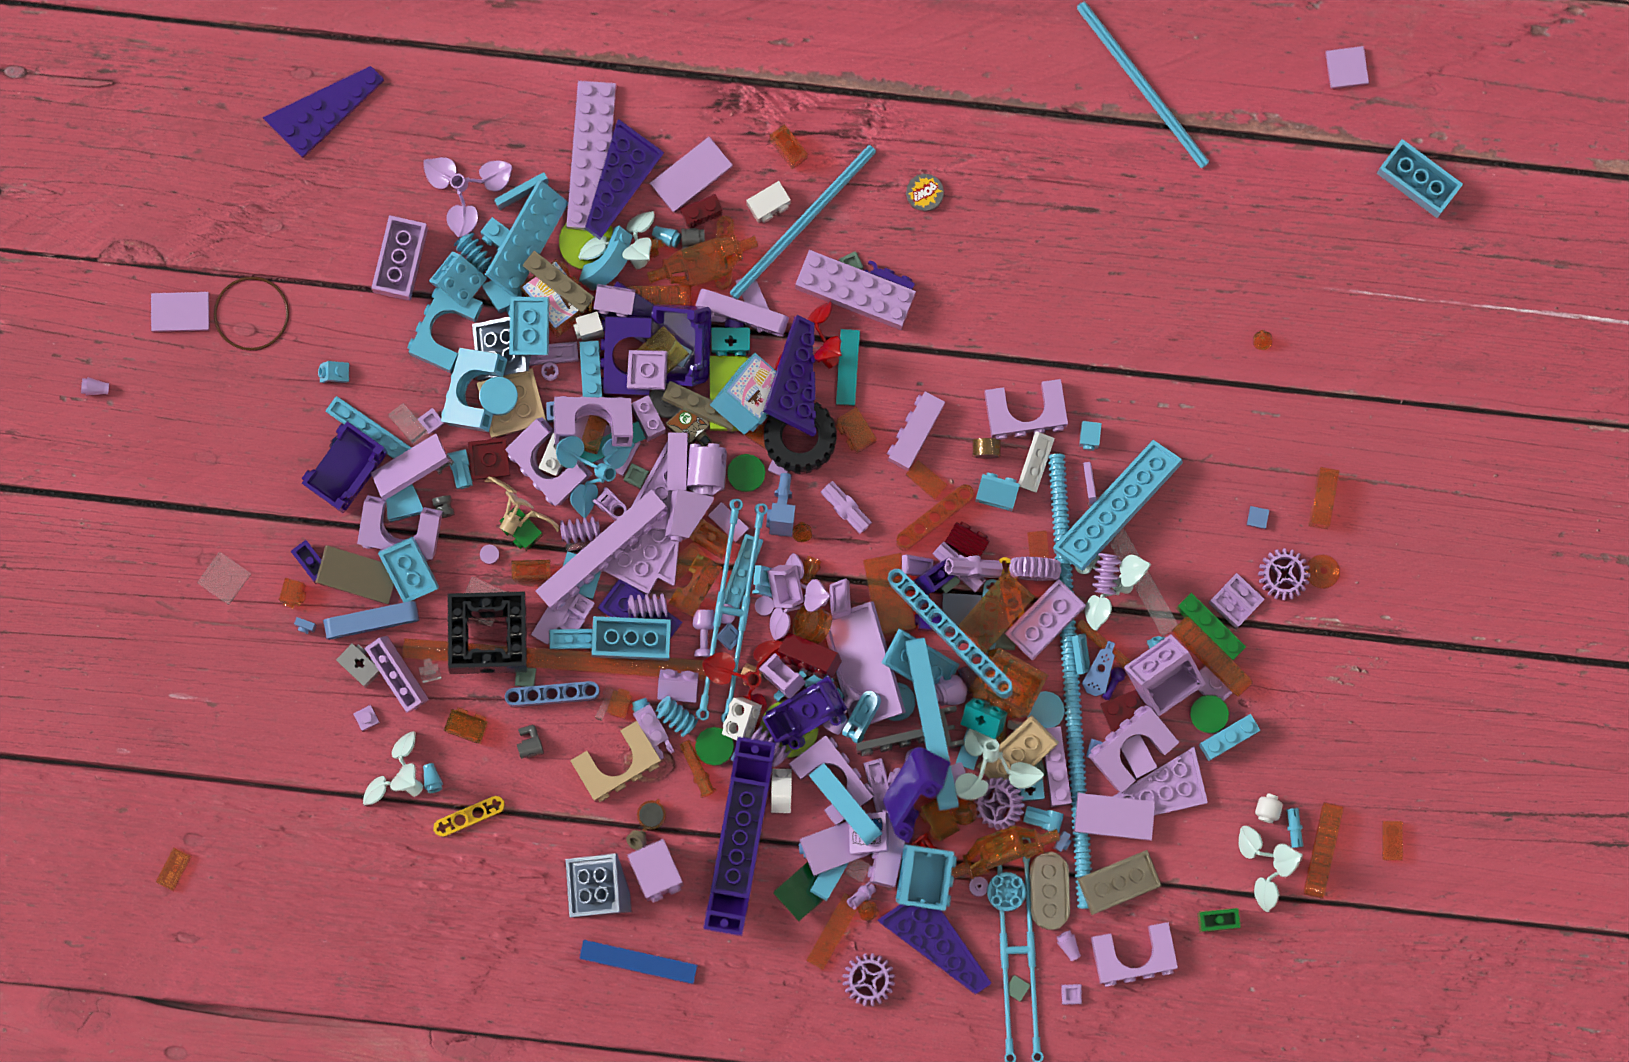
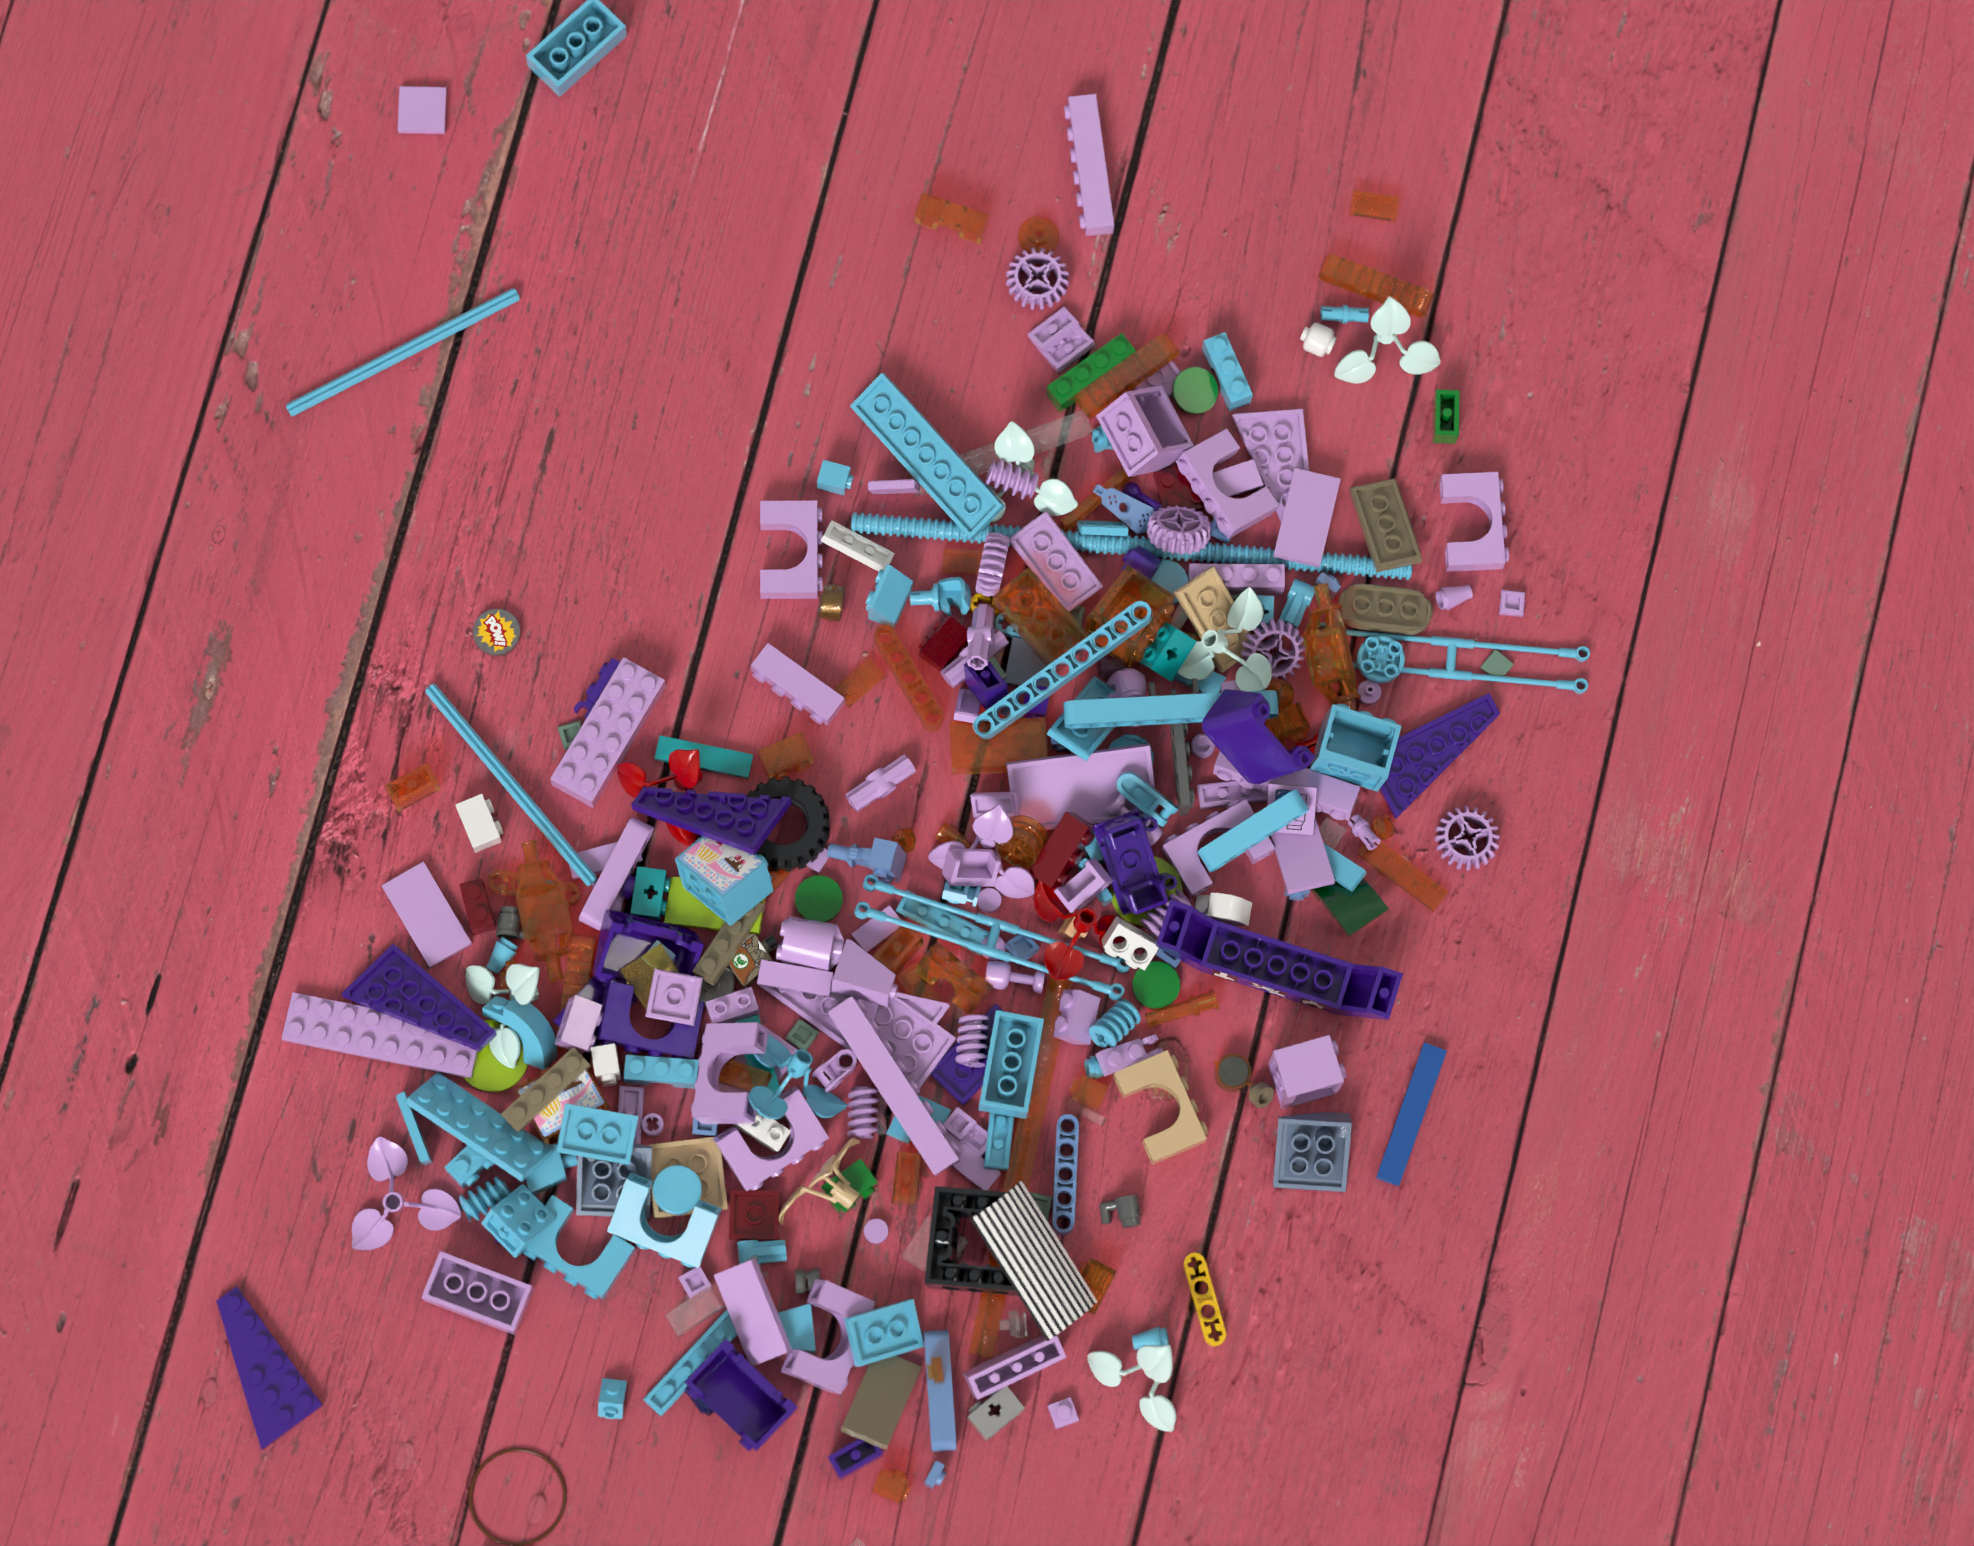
camera: 85 degrees left, 5 degrees down
(382, 612) = (935, 1371): none -> clear orange plate
(473, 675) = (1034, 1261): none -> sticker
(1006, 535) = (945, 594): none -> medium azure piece
(1055, 688) = (1142, 561): none -> dark purple brick
(1087, 702) = (1179, 530): none -> lavender gear
(1257, 517) = (962, 299): medium blue tile -> none
(1262, 340) = (746, 259): clear orange tile -> none
(1388, 604) = (1090, 165): none -> lavender brick

